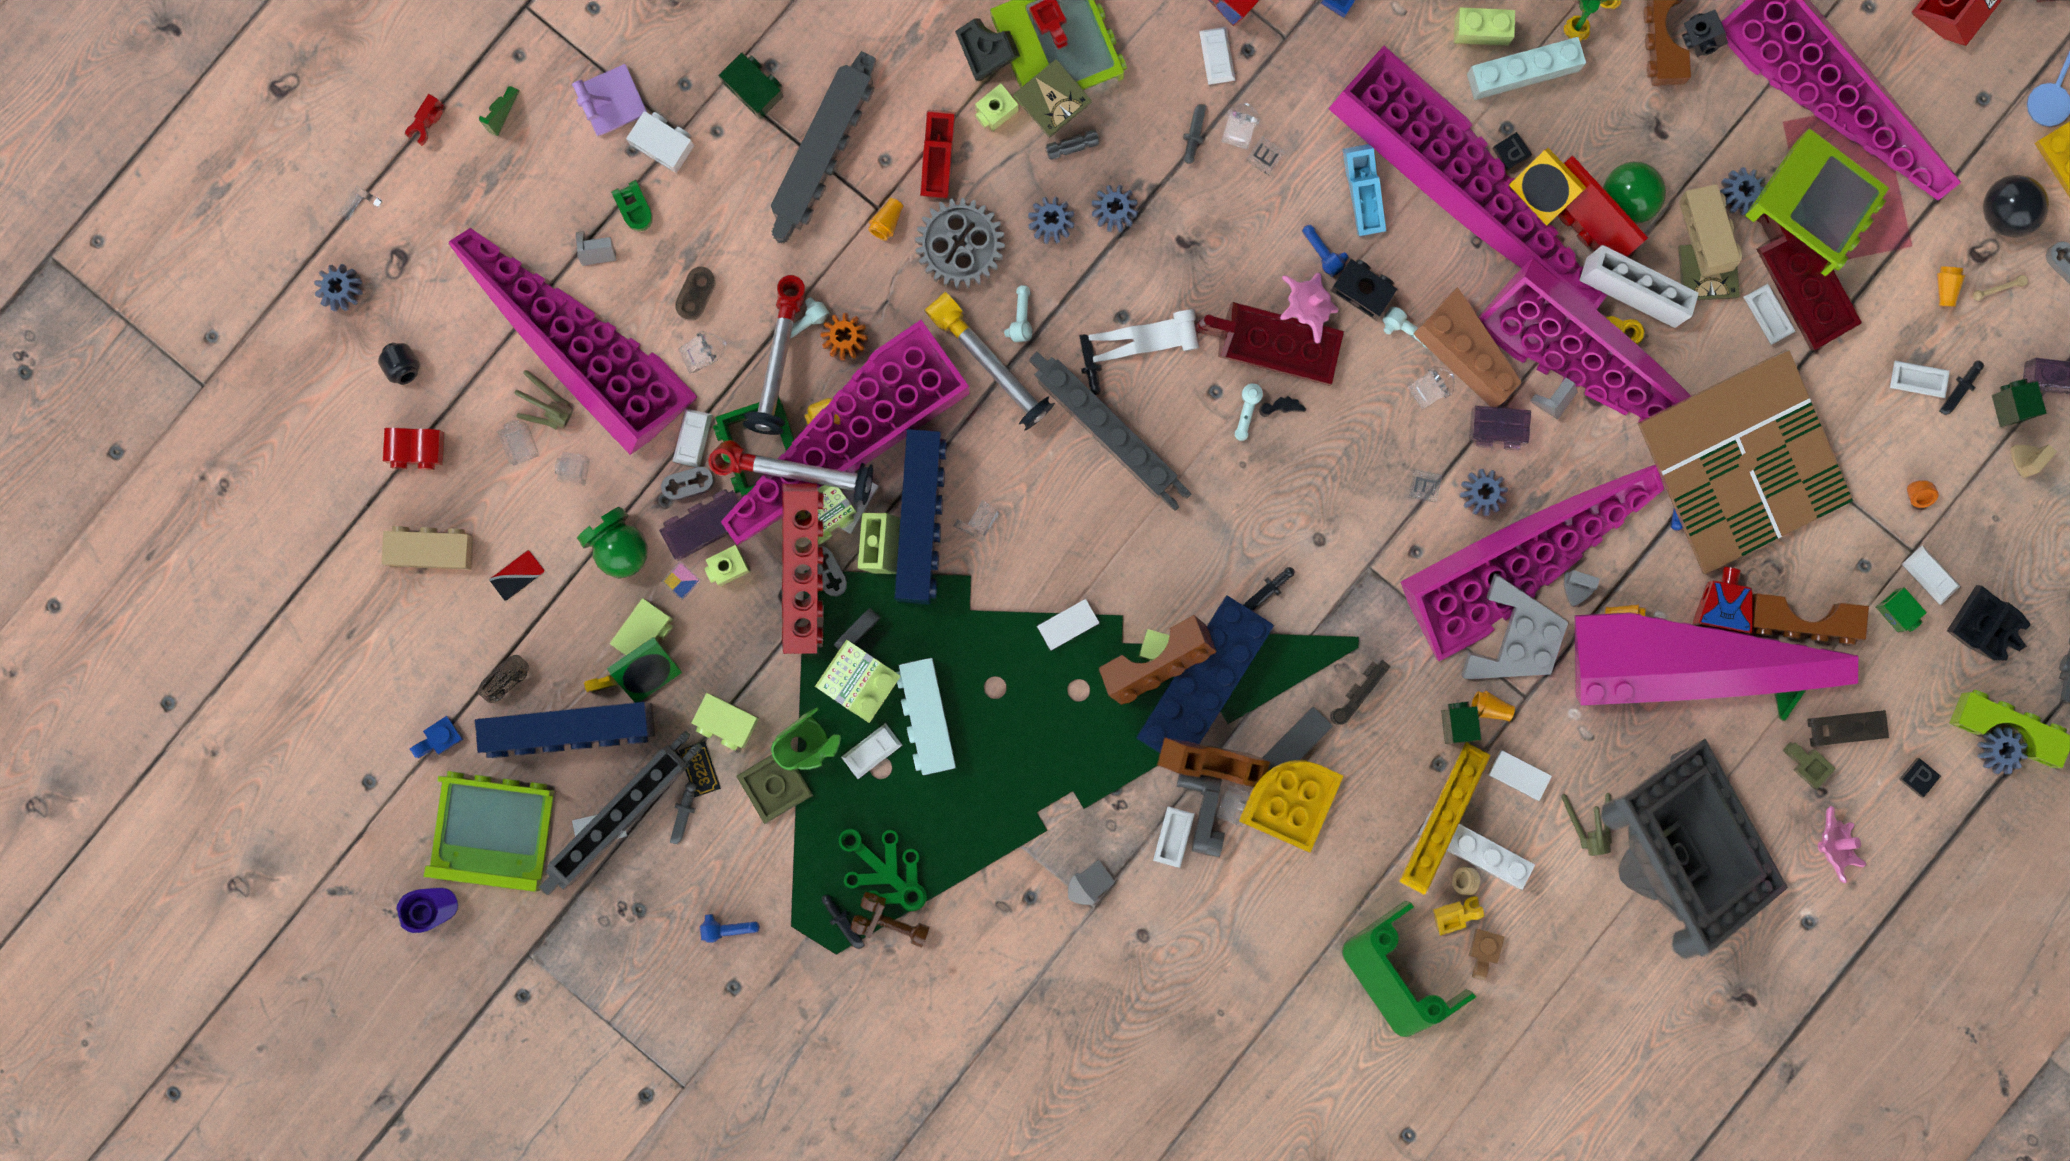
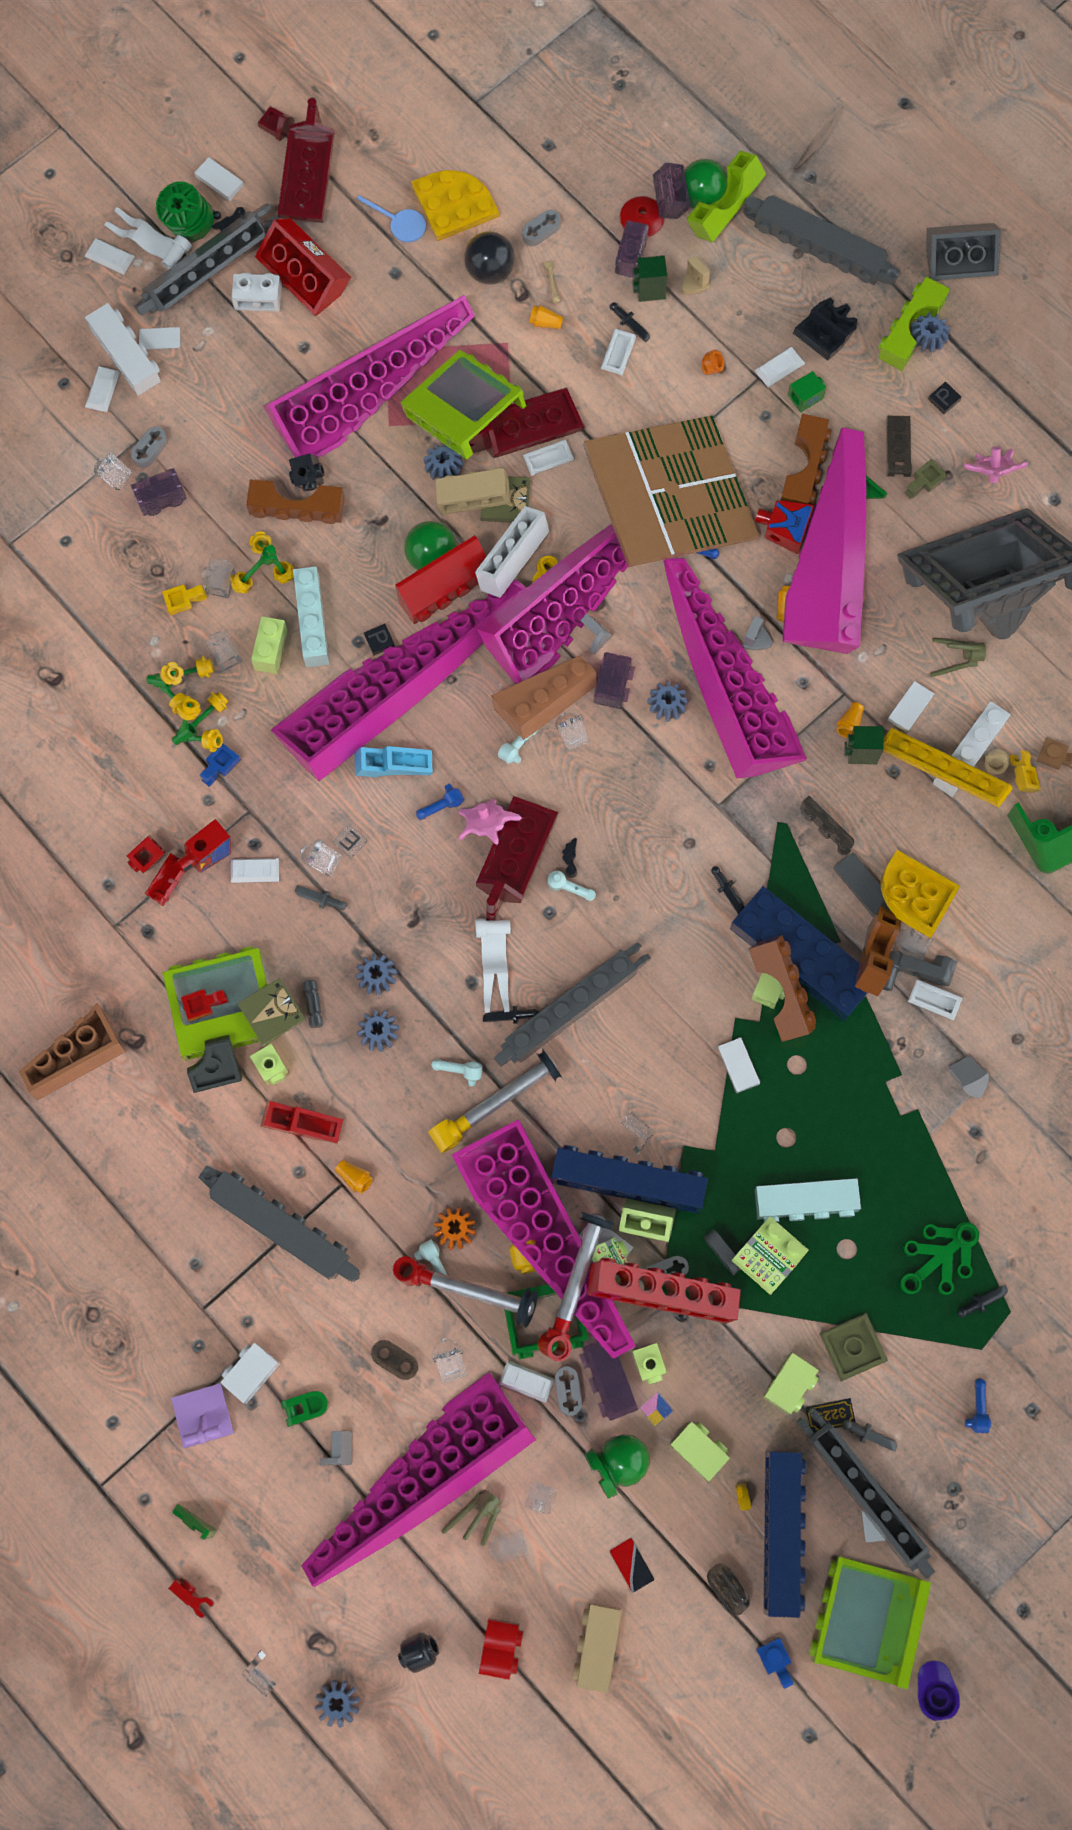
camera: 80 degrees left, 10 degrees down
(644, 670) = (737, 1452): tile -> none
(751, 85) = (211, 1282): dark green brick -> none
(817, 744) = (826, 1302): bright green piece -> none
(865, 927) = (973, 1266): reddish brown bar -> none
(871, 751) = (831, 1255): white tile -> none
(938, 230) = (401, 1097): light grey gear -> none
(1370, 304) = (476, 787): black brick -> none
(1425, 486) = (655, 749): clear tile -> none
(1529, 640) = (799, 682): light grey wing -> none
(1547, 186) = (416, 611): tile -> none

